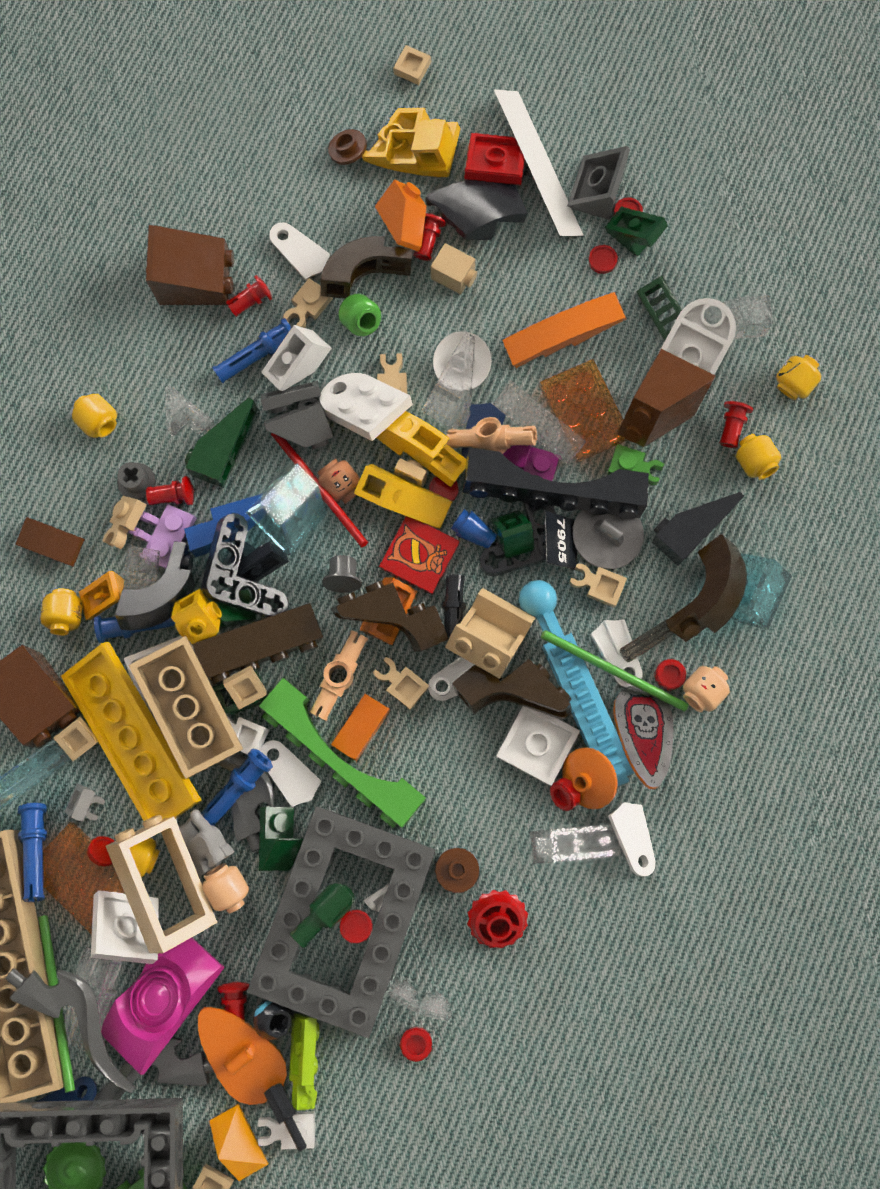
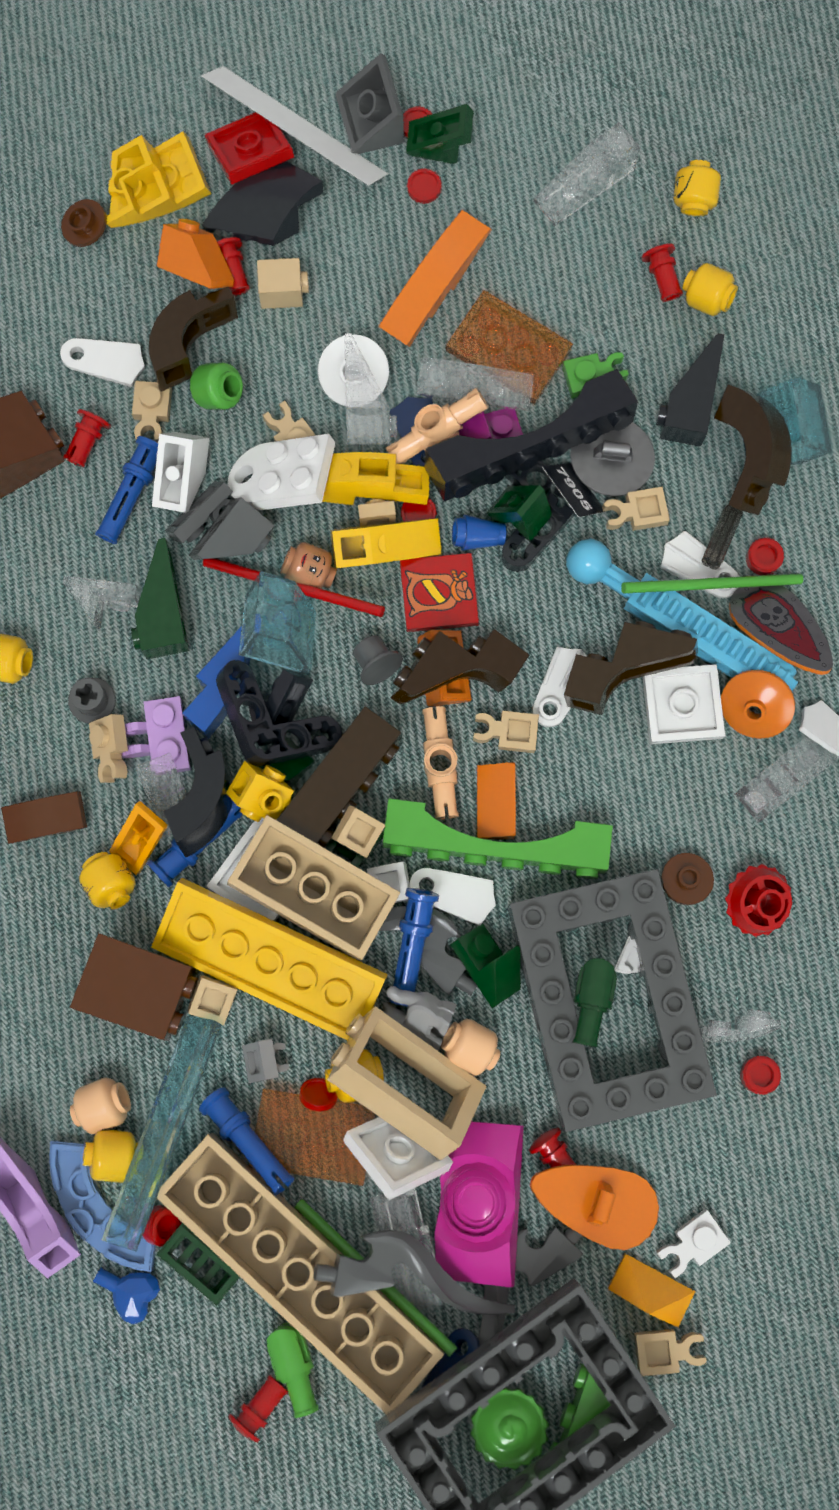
camera: 40 degrees left, 0 degrees up
(174, 492) = (140, 687): red pin -> none
(272, 1020) = (606, 1144): black piece -> none
(284, 1113) = (680, 1227): black axle -> none
(303, 1061) = (662, 1163): lime hinge -> none
(356, 926) = (632, 994): red piece -> none
(412, 65) = (95, 99): tan plate -> none
(432, 143) = (174, 166): yellow brick -> none
(453, 604) = (507, 619): black pin -> none
(490, 633) = (567, 622): tan panel -> none
(564, 794) = (743, 736): red tile -> none
(651, 288) = (526, 187): dark green slope -> none
(665, 399) = (583, 284): reddish brown slope -> none
(699, 341) = (578, 216): white plate -> none
(706, 688) = (810, 546): light nougat head -> none

